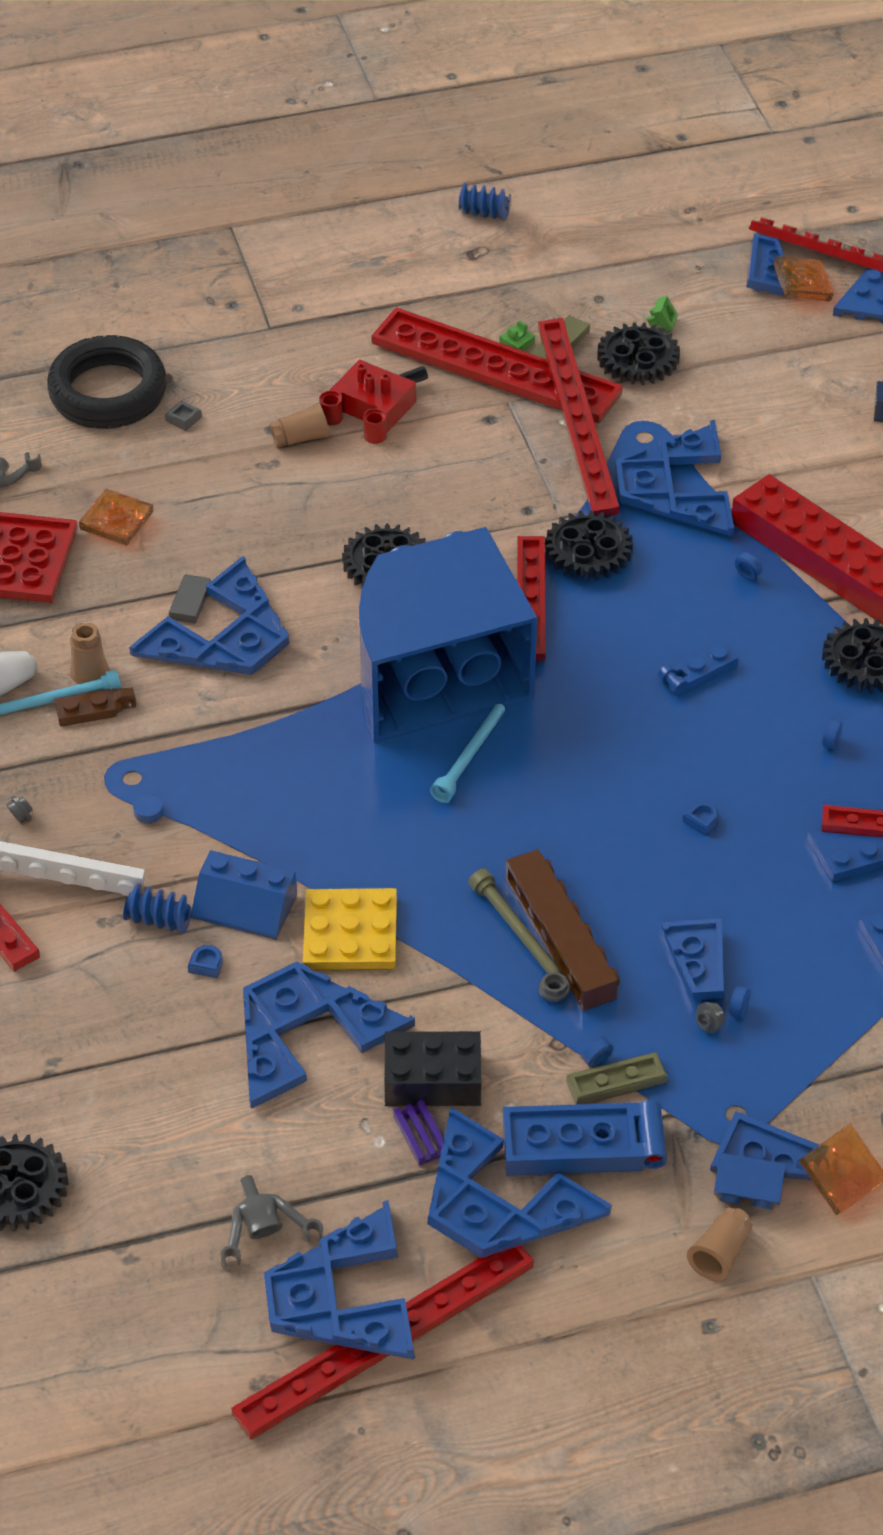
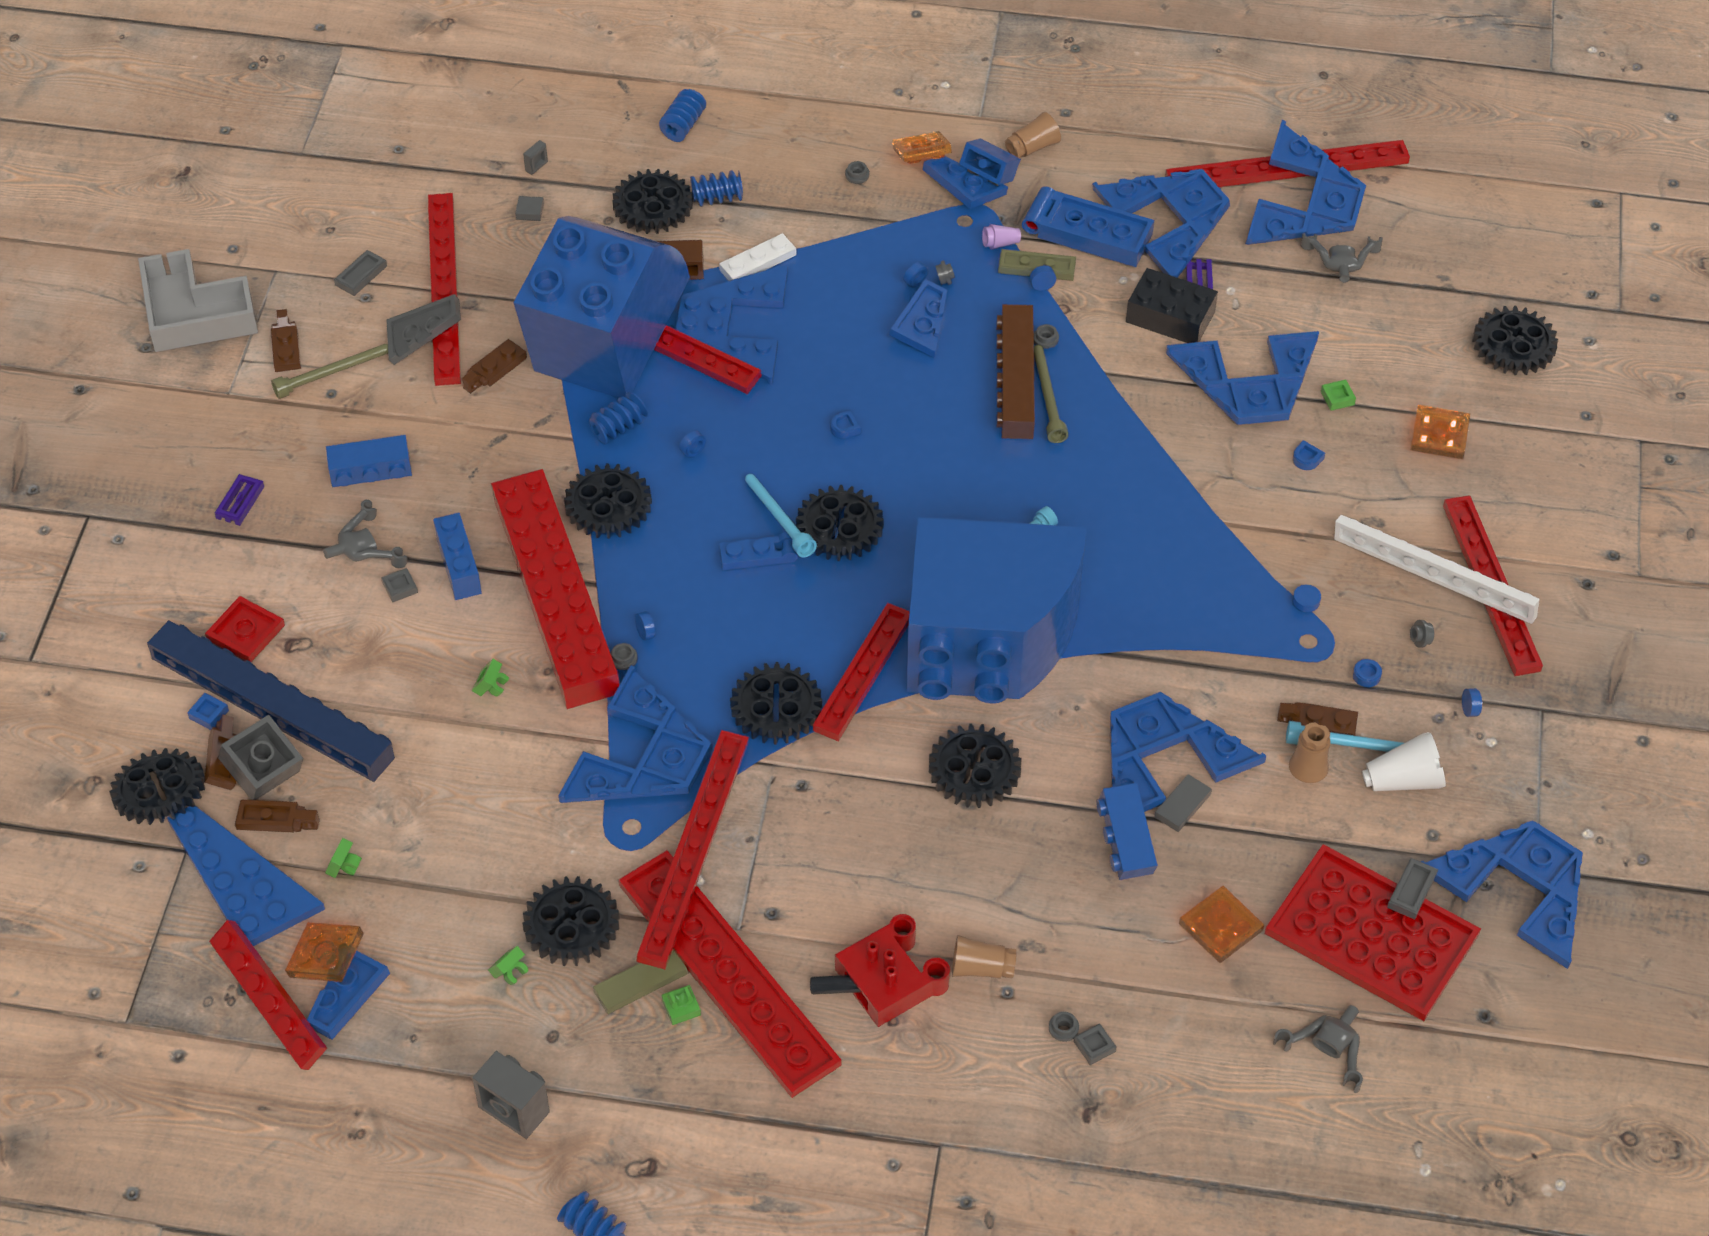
camera: 155 degrees left, 5 degrees up
(62, 763) = (1367, 673): none -> blue tile
(68, 1034) = (1440, 432): none -> clear orange plate
(111, 411) = (1153, 1160): black tyre -> none
(157, 909) = (1332, 499): blue piece -> none
(198, 1037) = (1338, 395): none -> bright green plate
(213, 414) = (1063, 1019): none -> dark grey plate
(225, 540) = (1126, 831): none -> blue brick
(244, 894) = (1254, 490): blue slope -> none
(350, 929) = (1180, 438): yellow plate -> none
(593, 234) = (511, 1094): none -> dark grey brick
(656, 665) = (802, 542): none -> medium azure piece
(658, 706) = (857, 529): none -> black gear
(678, 1089) = (999, 236): none -> lavender cone
(748, 540) = (624, 656): none -> dark grey plate
(843, 485) = (488, 677): none -> bright green tile
(844, 334) = (343, 860): none -> bright green tile

